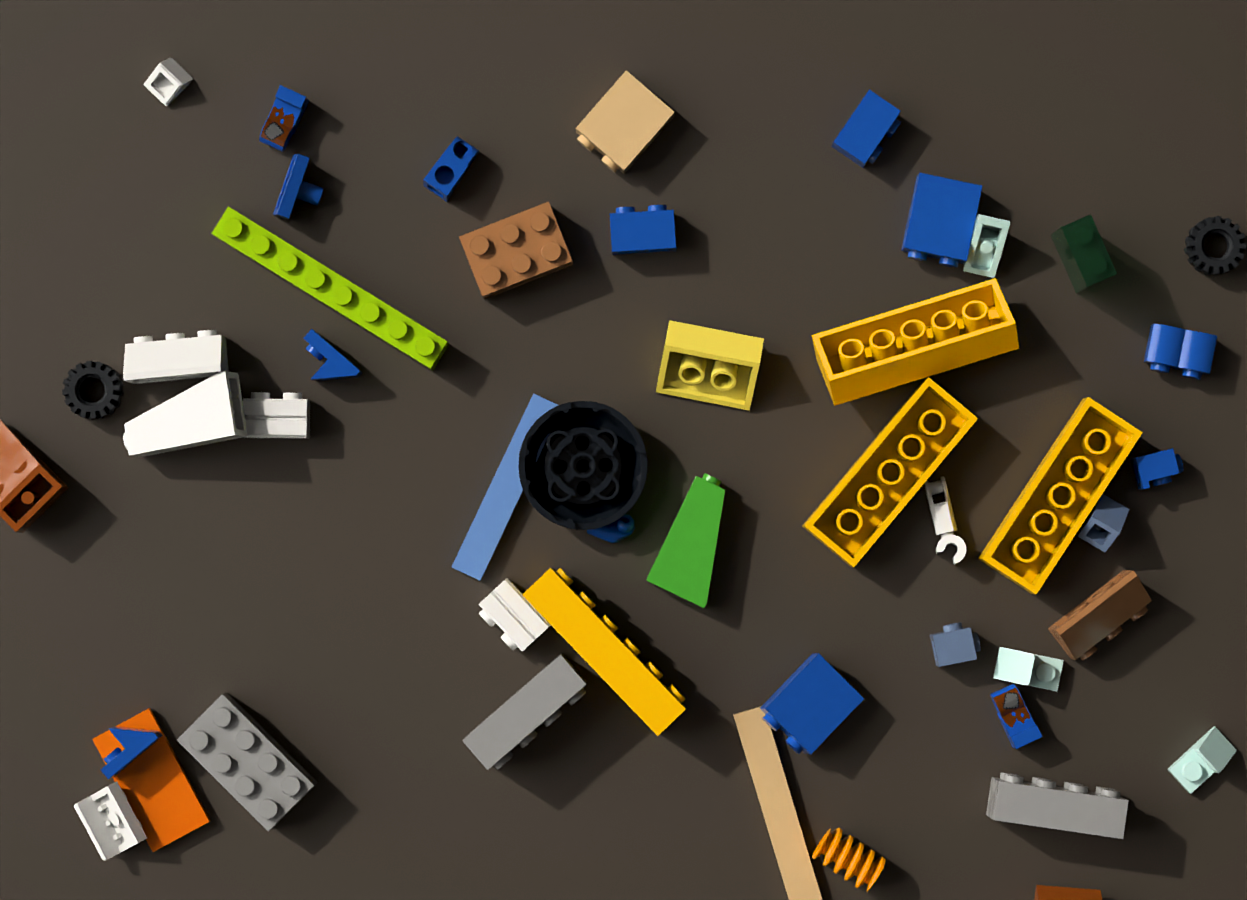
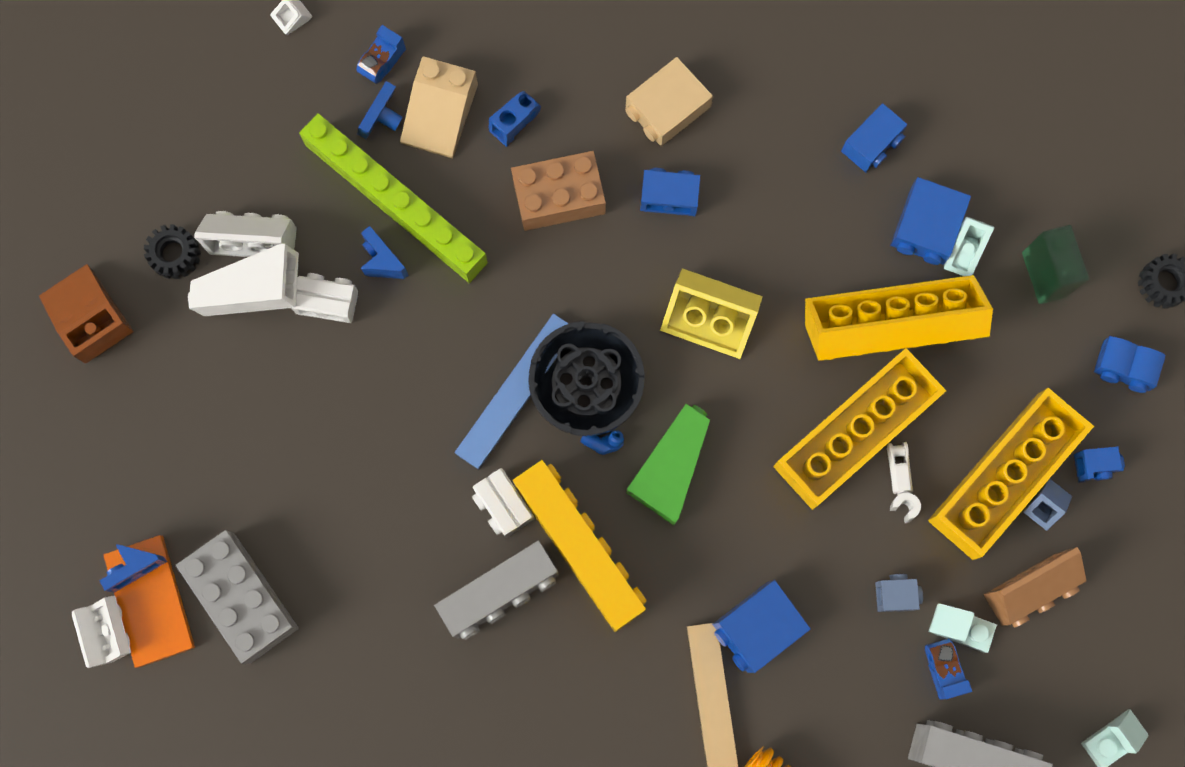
camera: 10 degrees right, 10 degrees down
(361, 171) = (438, 106): none -> tan slope

